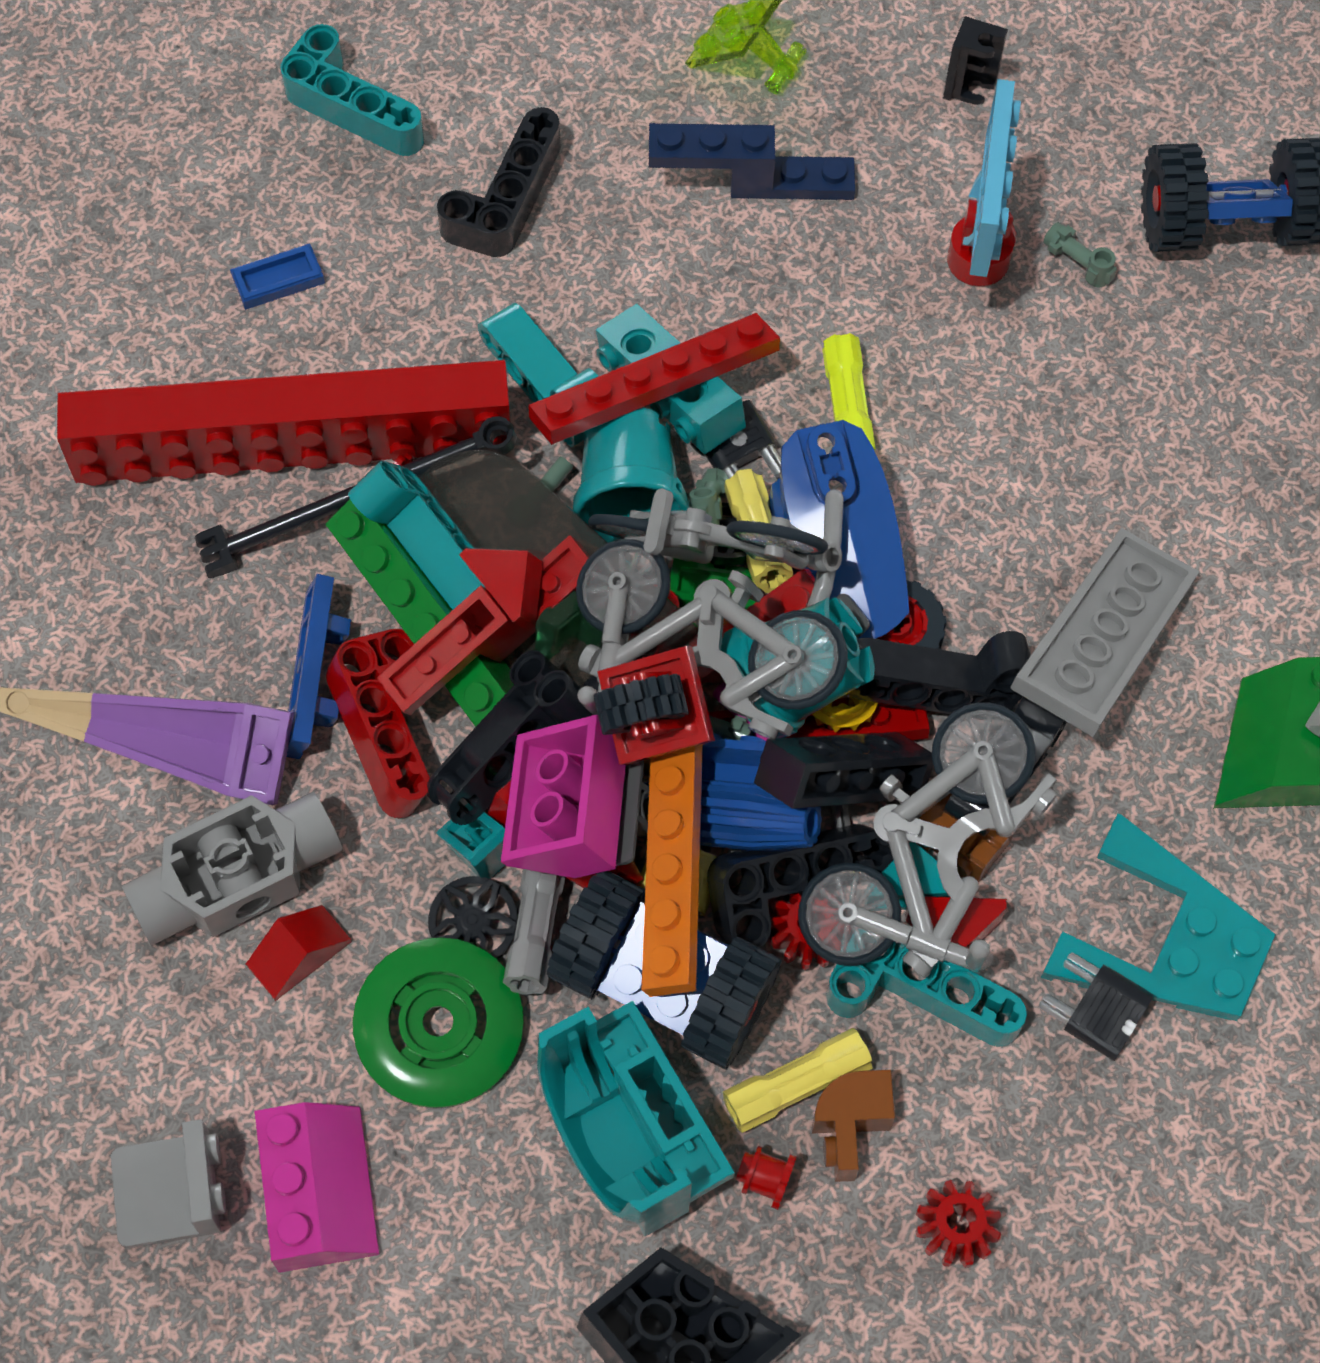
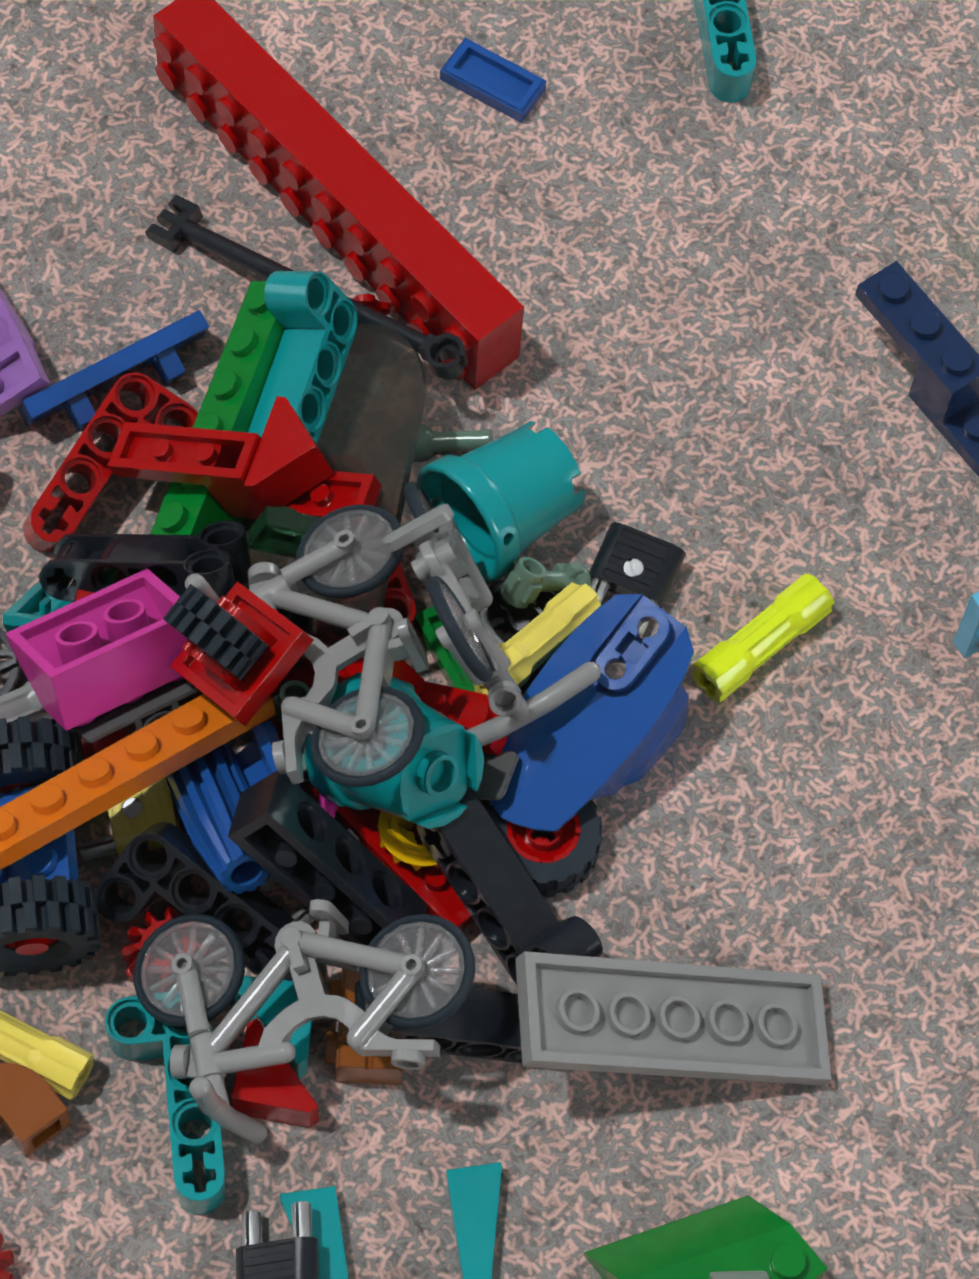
camera: 50 degrees right, 0 degrees up
(510, 193) = (811, 187): black beam -> none
(530, 356) = (568, 356): teal beam -> none
(653, 378) = (612, 443): red plate -> none
(699, 414) = (641, 466): teal brick -> none

